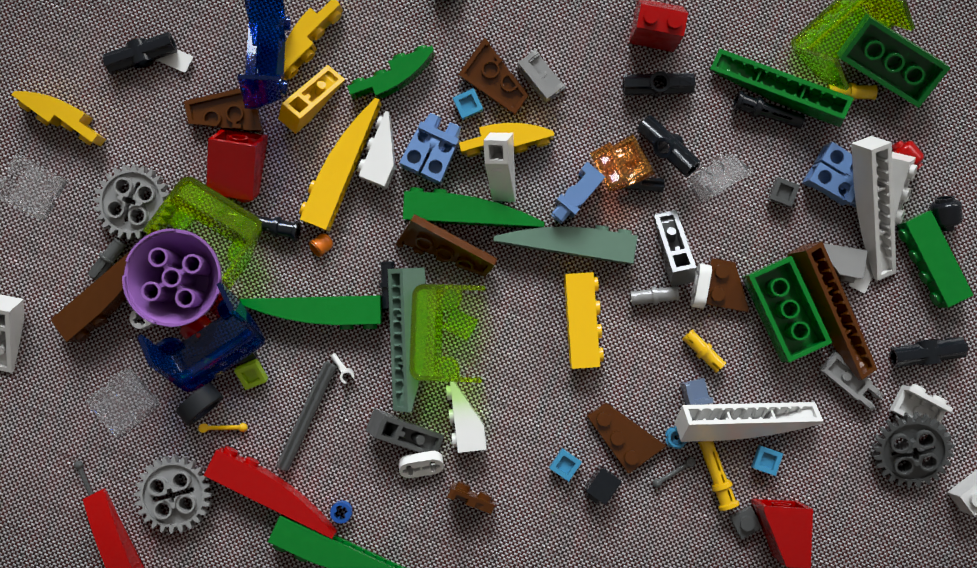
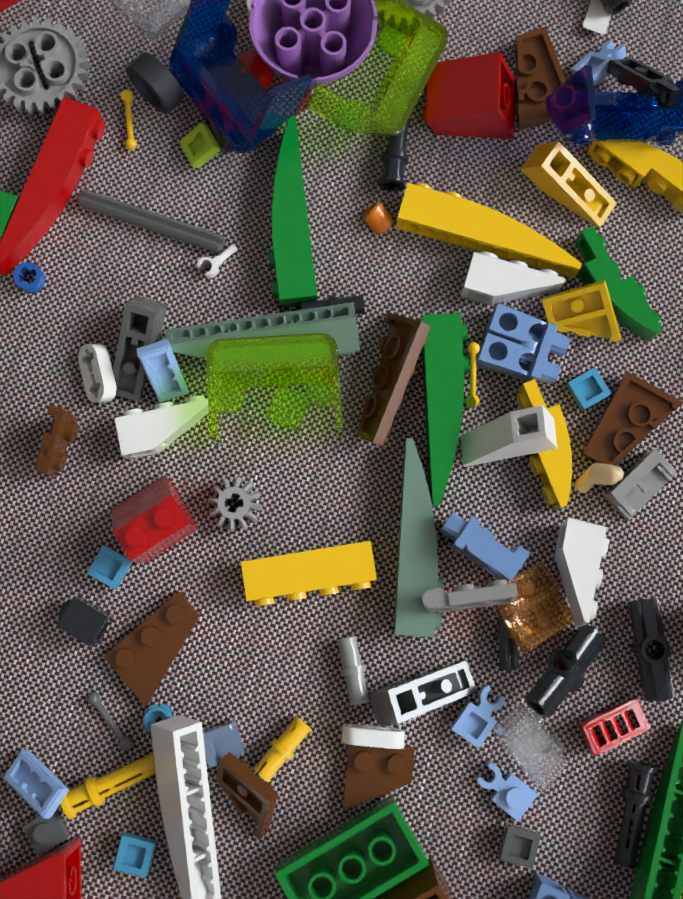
camera: 85 degrees right, 5 degrees down
(218, 64) = (600, 60): none -> light blue plate
(240, 31) = (646, 80): none -> black hinge
(410, 100) = (583, 311): none -> yellow wing
(425, 414) = (162, 370): none -> light blue plate
(431, 184) = (473, 400): none -> yellow hinge
(532, 104) = (599, 474): none -> tan arm
(534, 364) = (241, 512): none -> light grey gear
(534, 431) = (152, 521): none -> red slope
(592, 127) = (578, 561): none -> white slope
(613, 209) = (467, 597): none -> light grey hinge
(696, 213) = (475, 720): none -> light blue plate
(700, 119) = (597, 747): none -> slope
(713, 526) = (36, 784): none -> light blue plate
(731, 377) = (247, 792): none -> reddish brown wing
(747, 195) = (509, 792): none -> light blue plate

